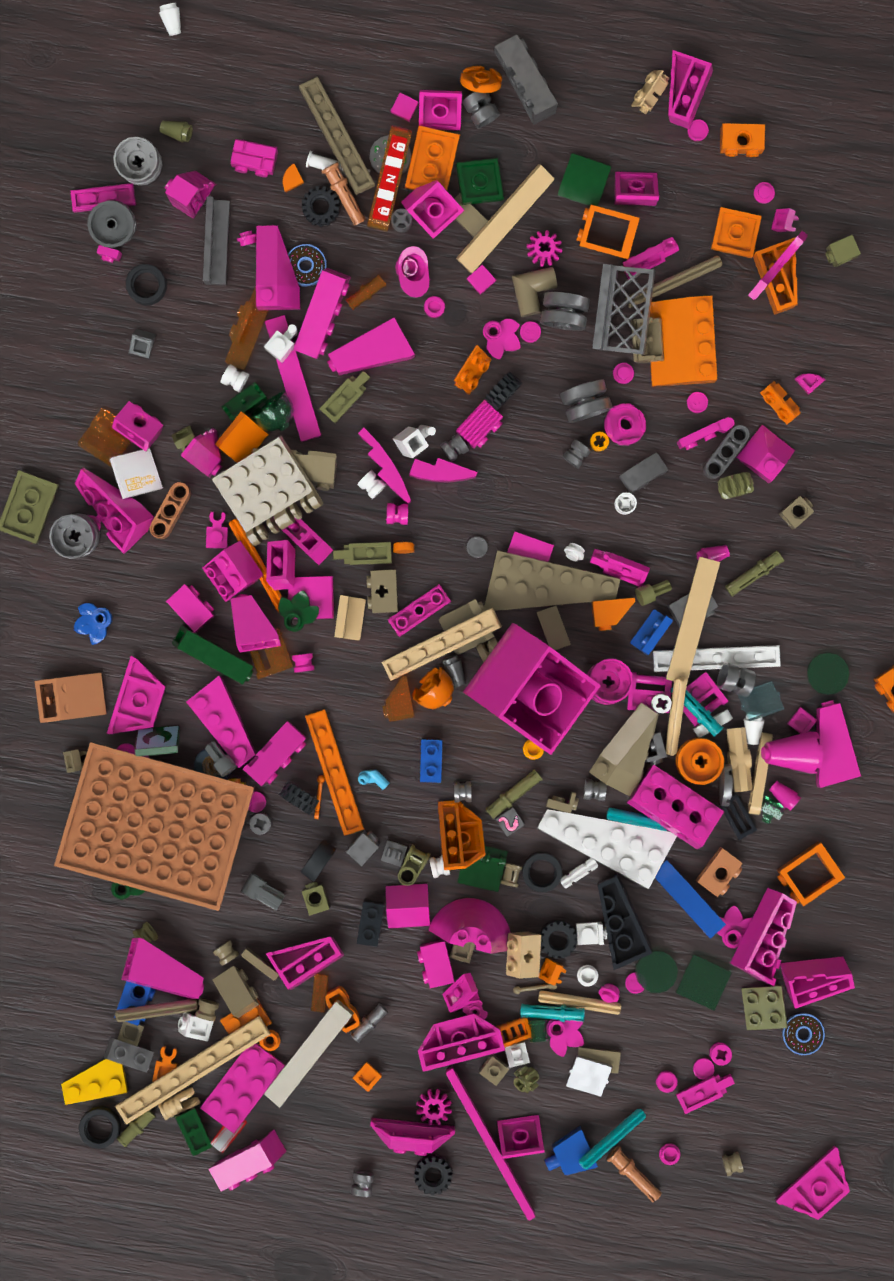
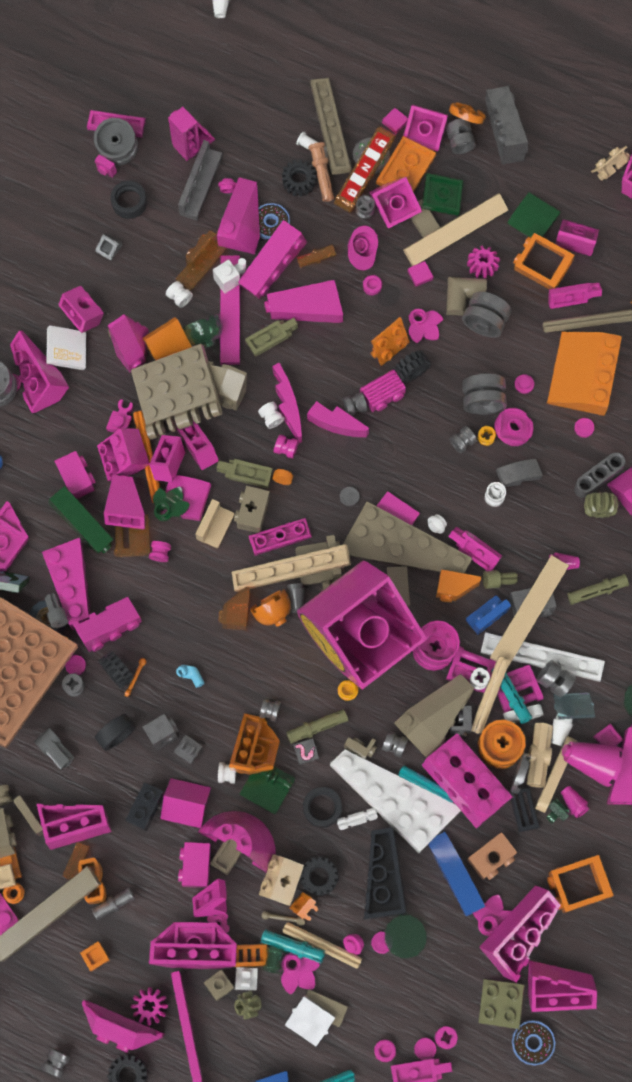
camera: 20 degrees right, 15 degrees down
(102, 439) = (47, 312): clear orange slope -> none
(126, 157) = (153, 90): light grey wheel -> none
(162, 518) = (89, 379): nougat beam -> none
(177, 130) = (196, 87): olive cone -> none
(244, 401) = (184, 315): dark green hinge -> none
(254, 158) = (254, 124): dark pink brick -> none
(292, 178) = (281, 151): orange tile -> none
(312, 907) = (105, 777): olive brick -> none
(334, 772) = (157, 658): orange tile -> none
(412, 440) = (319, 386): white brick -> none
(413, 864) = (205, 762): olive piece -> none
(431, 760) = (249, 672): blue brick -> none
(511, 874) = (298, 797): dark tan bush -> none
(520, 1136) = (225, 1061): dark pink slope -> none
(530, 332) = (450, 328): dark pink piece -> none
(587, 975) = (337, 920): white plate -> none
(590, 933) = (352, 880): white bracket -> none
(606, 304) = (523, 326): flat silver fence -> none
(654, 341) = (553, 360): dark tan hinge -> none
(703, 982) = (448, 961): clear green tile -> none
(707, 433) = (586, 453): dark pink hinge -> none

